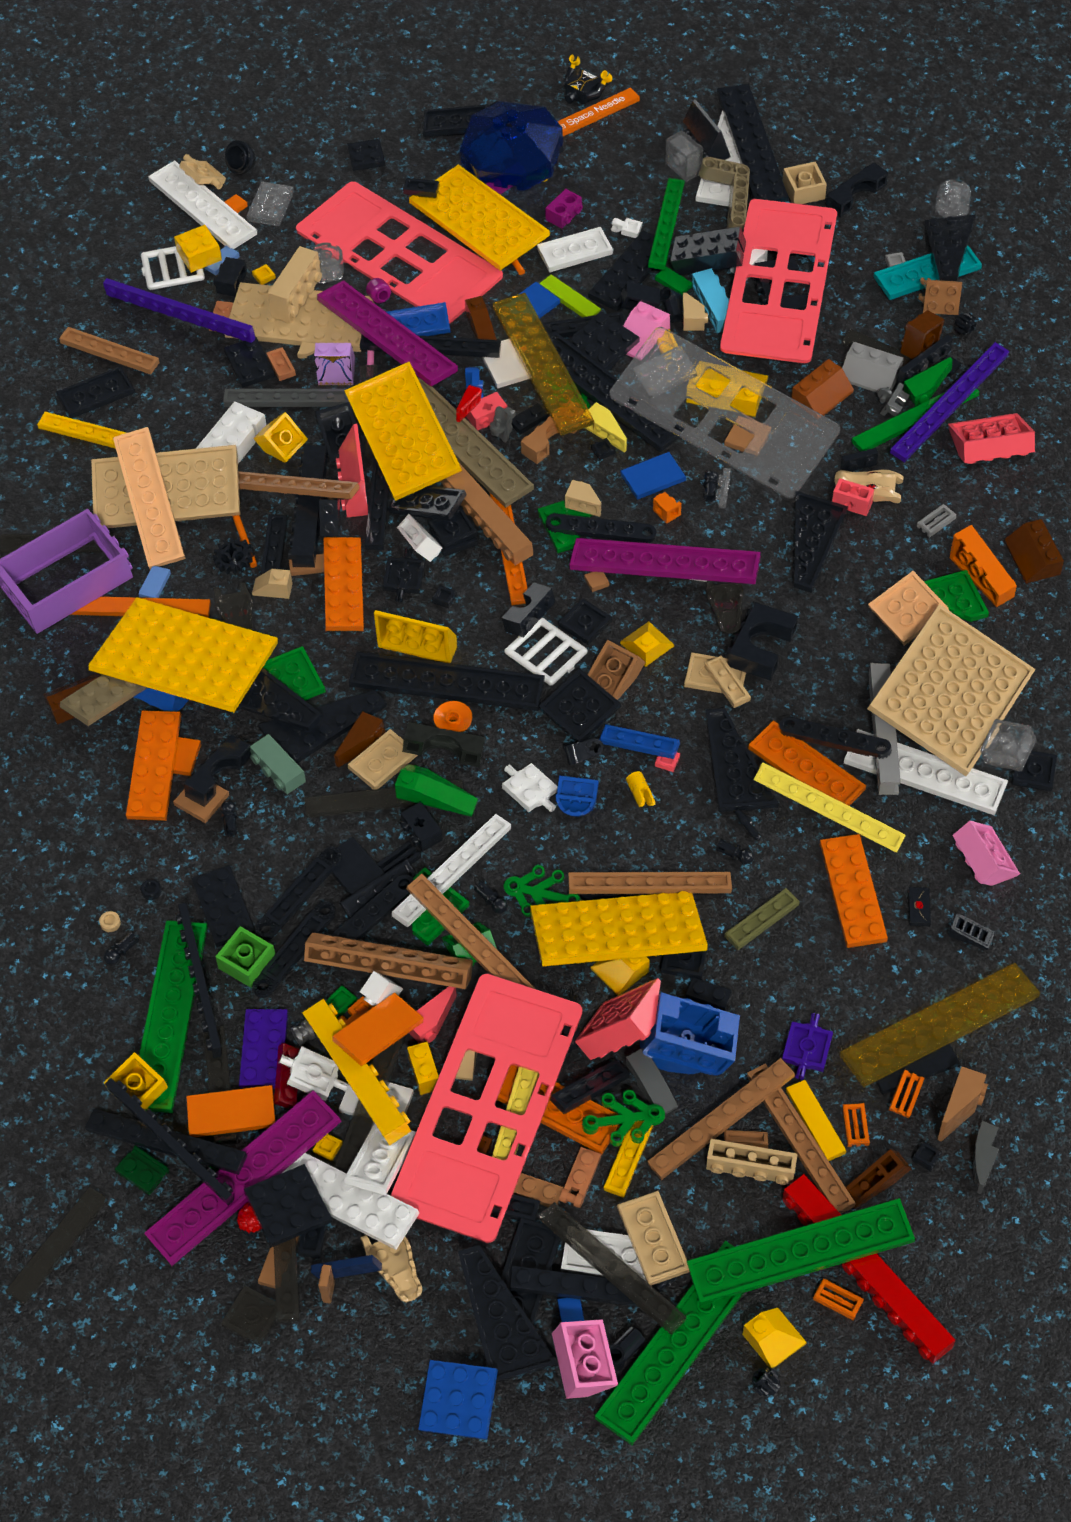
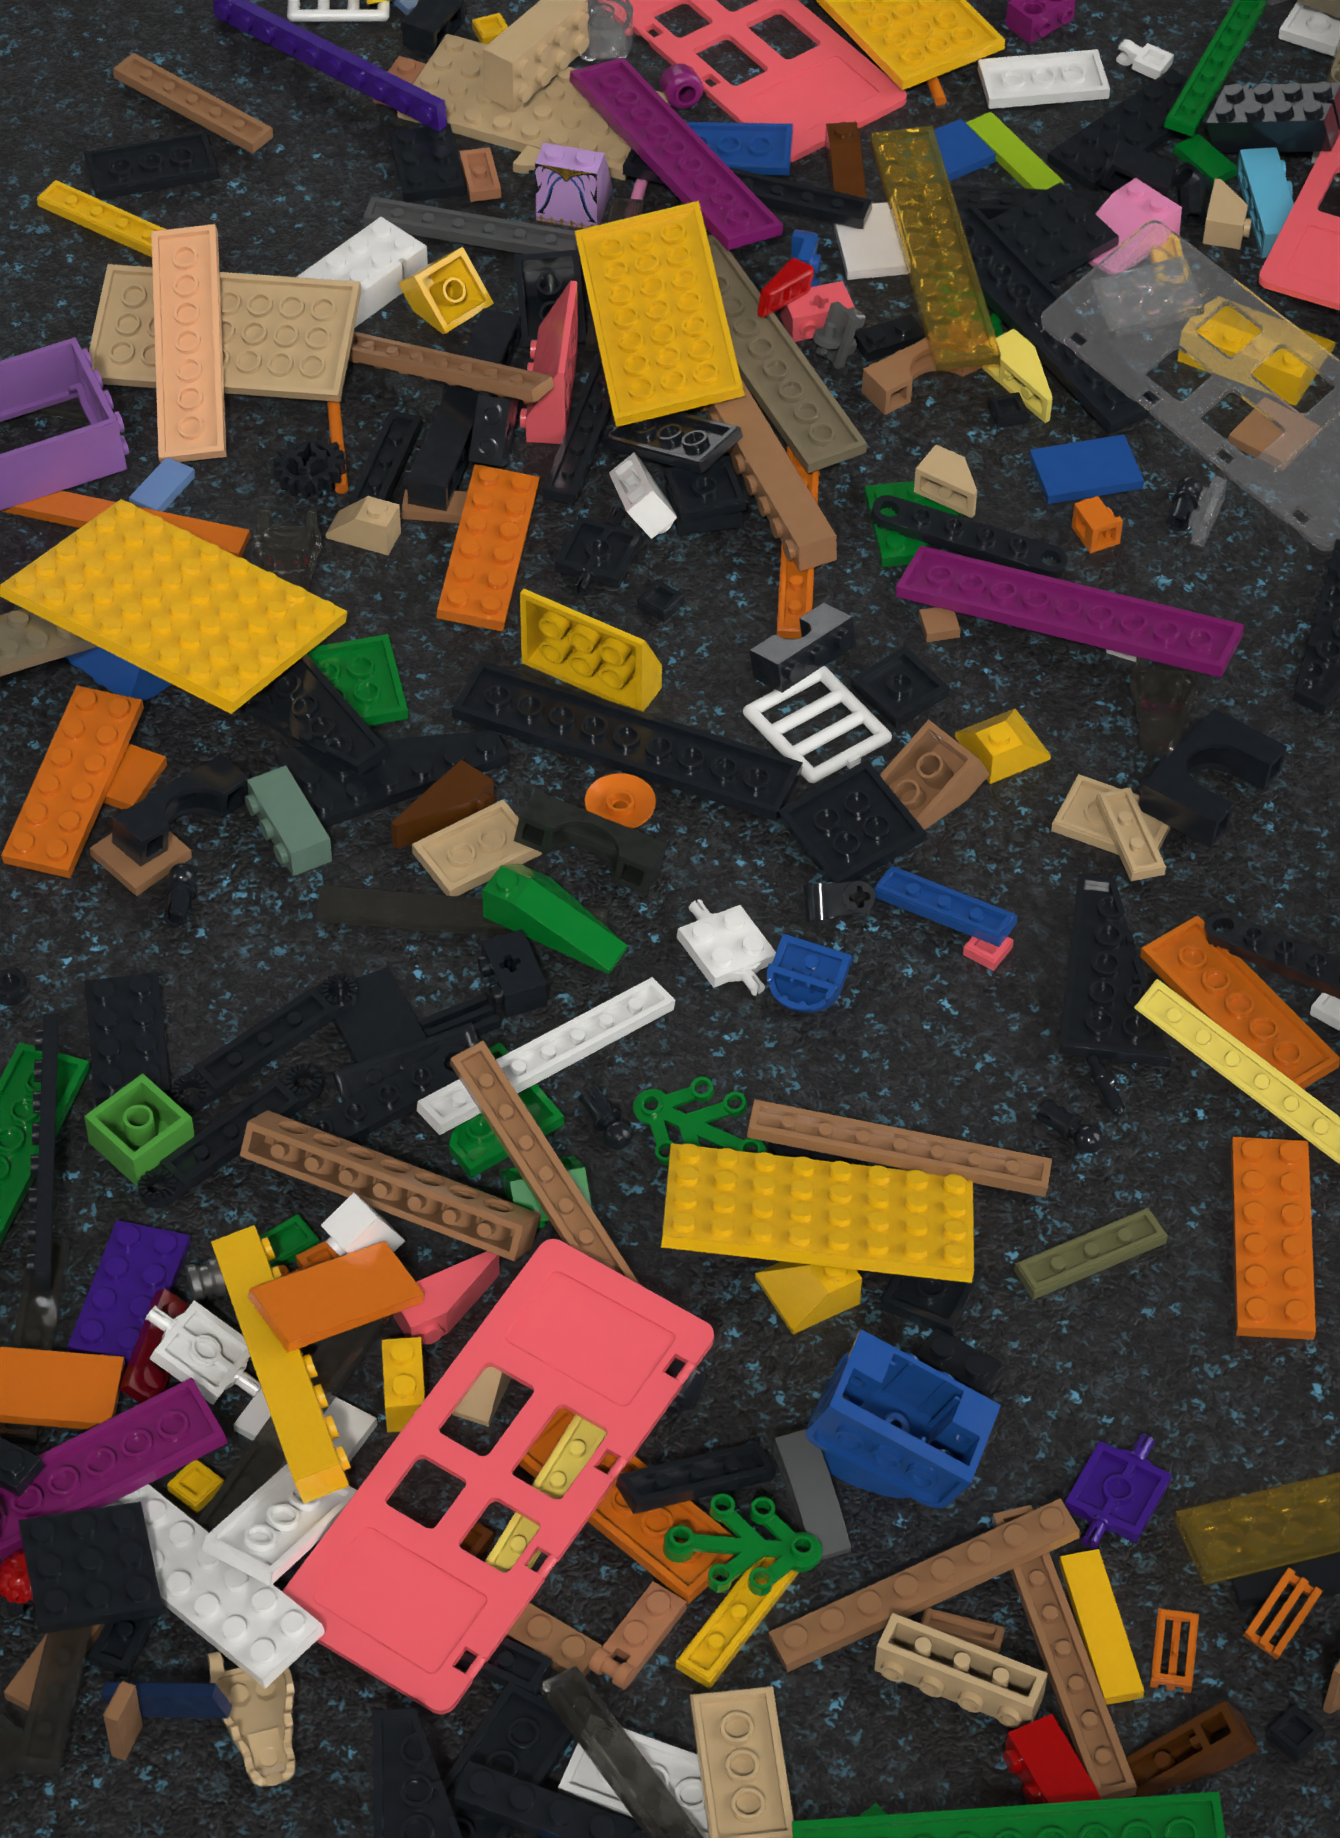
camera: 10 degrees right, 5 degrees down
(621, 1021) = (778, 1373): coral slope -> none
(640, 789) = (924, 986): yellow hinge -> none

